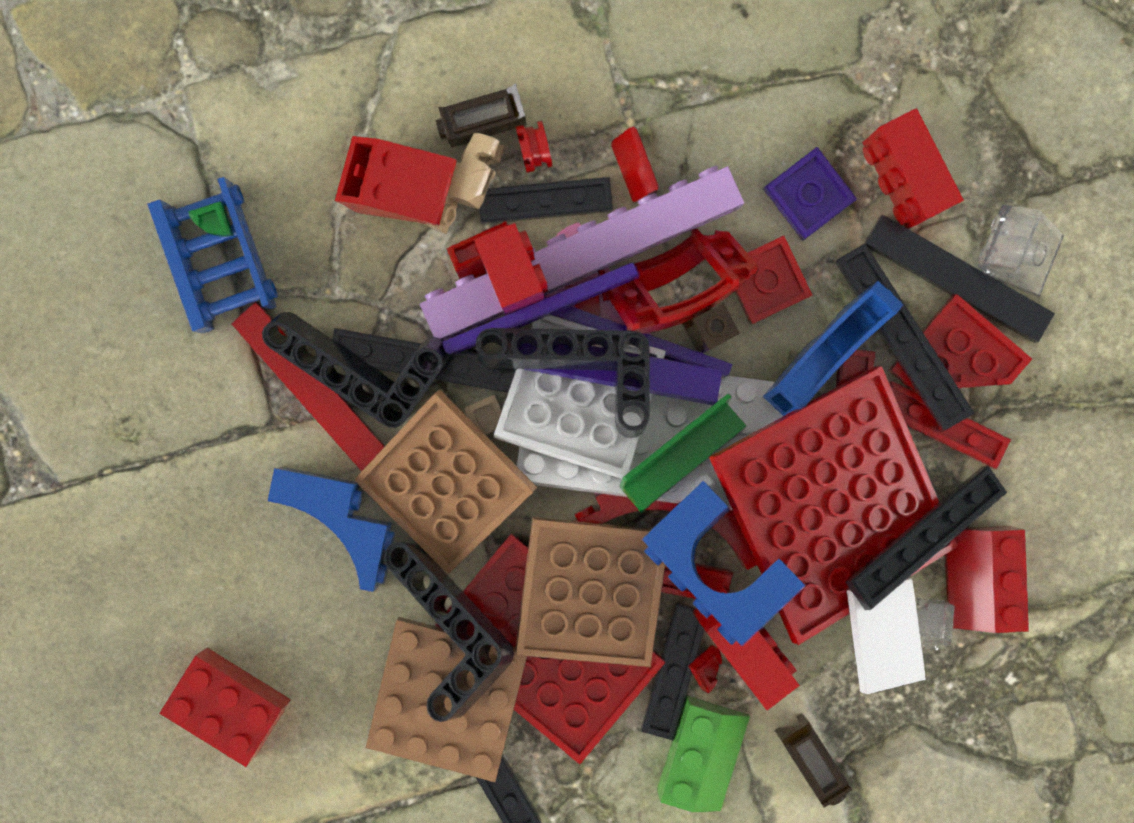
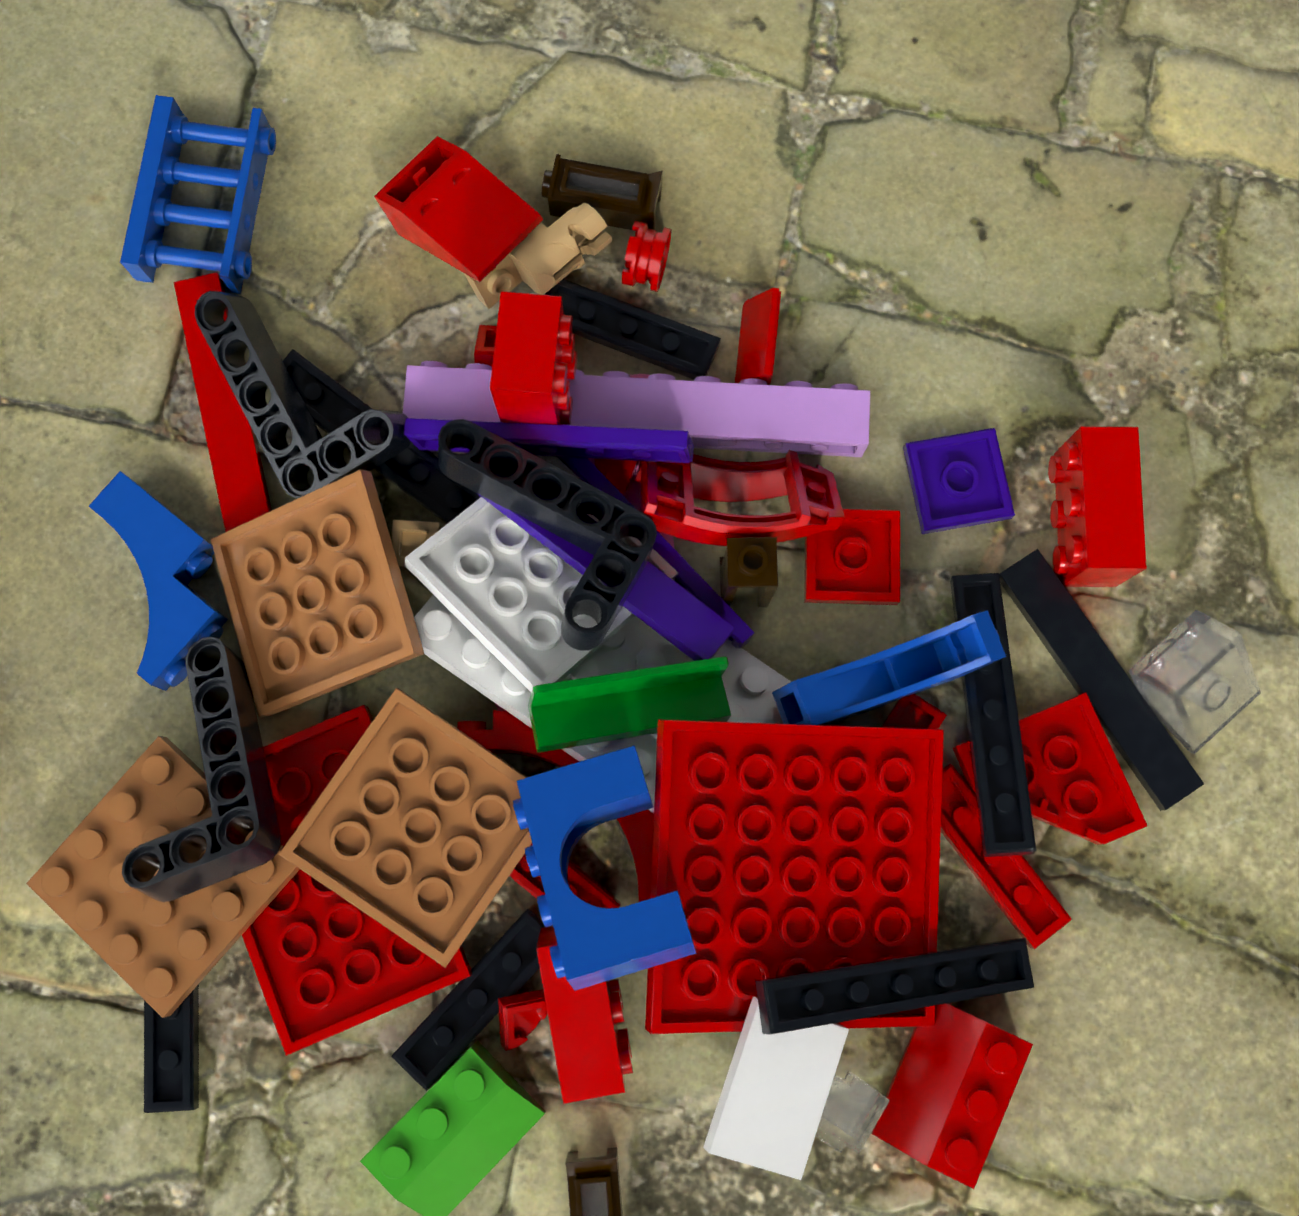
camera: 30 degrees right, 10 degrees down
(212, 219) = (221, 150): green tile -> none

